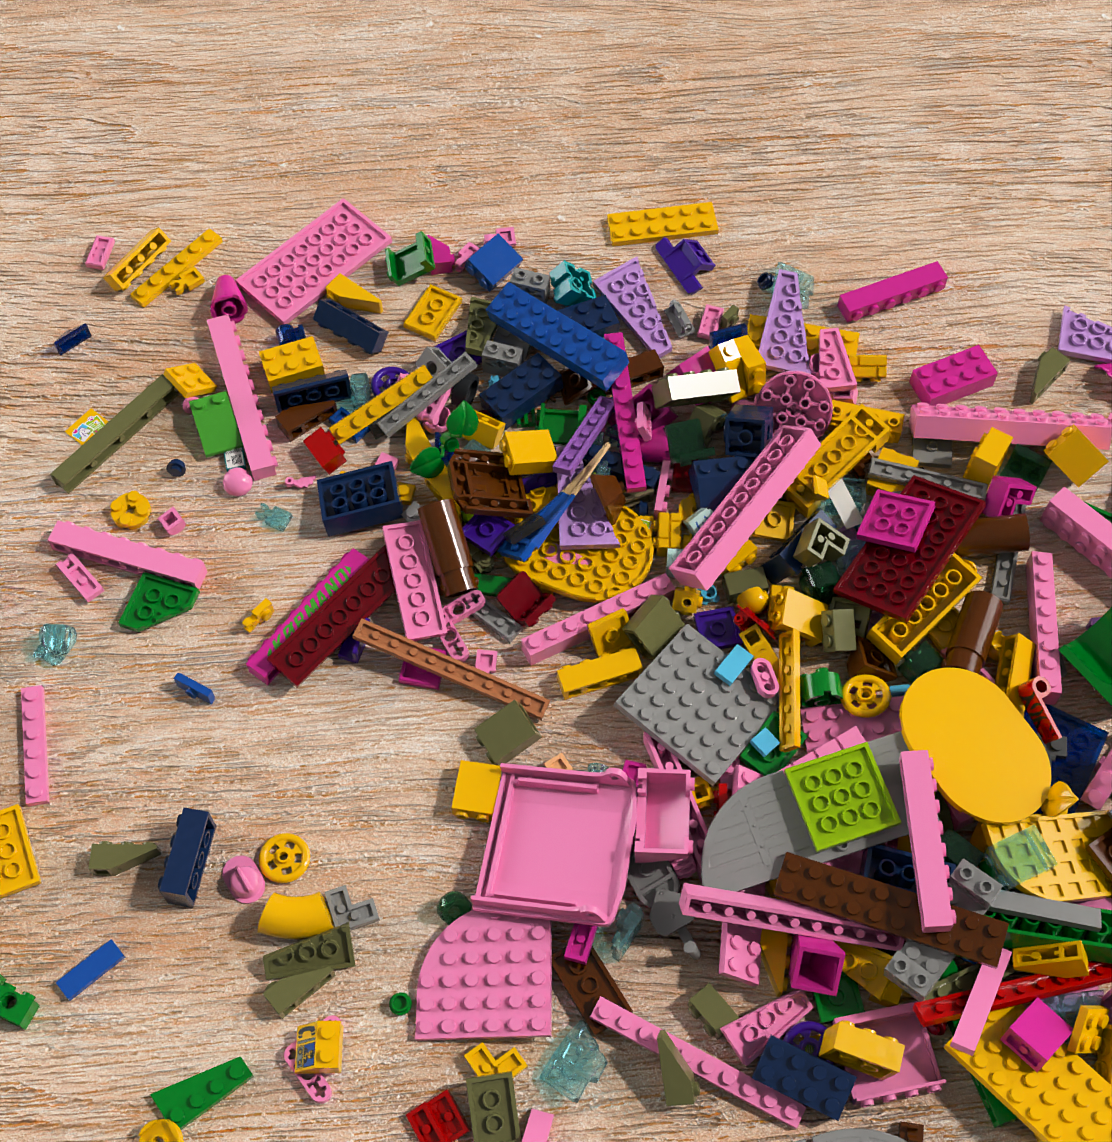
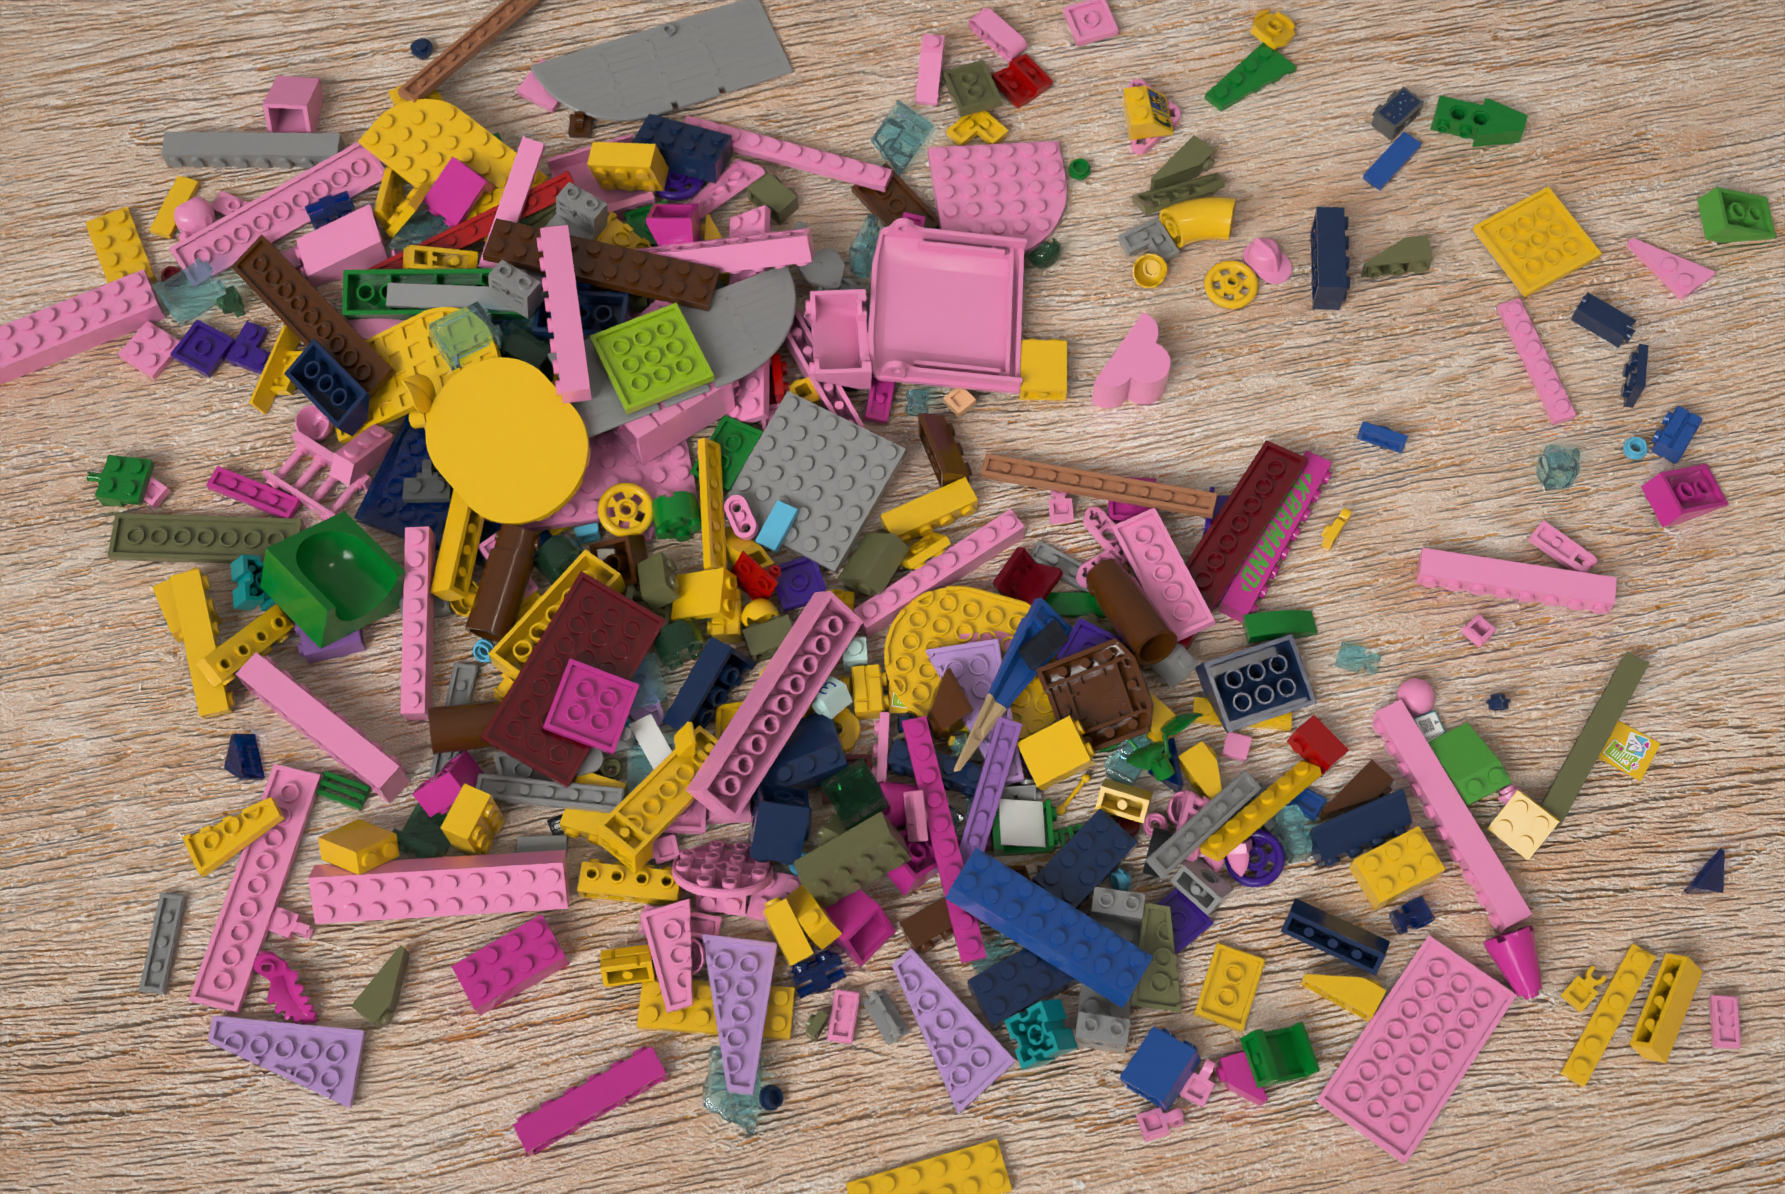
camera: 175 degrees right, 5 degrees up
(67, 1019) = (1397, 113): none -> brick
(126, 501) = (1541, 631): yellow plate -> none
(156, 601) = (1461, 528): green plate -> none
(303, 482) = (1335, 708): bright pink piece -> none
(328, 544) = (1277, 624): none -> green slope
(358, 874) = (1149, 270): none -> yellow hair
(396, 771) = (1135, 370): none -> bright pink brick
(507, 733) = (1020, 426): olive brick -> none
(563, 422) = (1021, 823): none -> white sticker
(579, 720) = (941, 449): none -> reddish brown slope
(677, 1076) = (803, 132): olive slope -> none
(685, 261) = (886, 1118): dark purple plate -> none
(764, 742) = (737, 448): medium azure tile -> none
(819, 542) = (686, 669): olive brick -> none
(1031, 694) = (434, 513): red door -> none

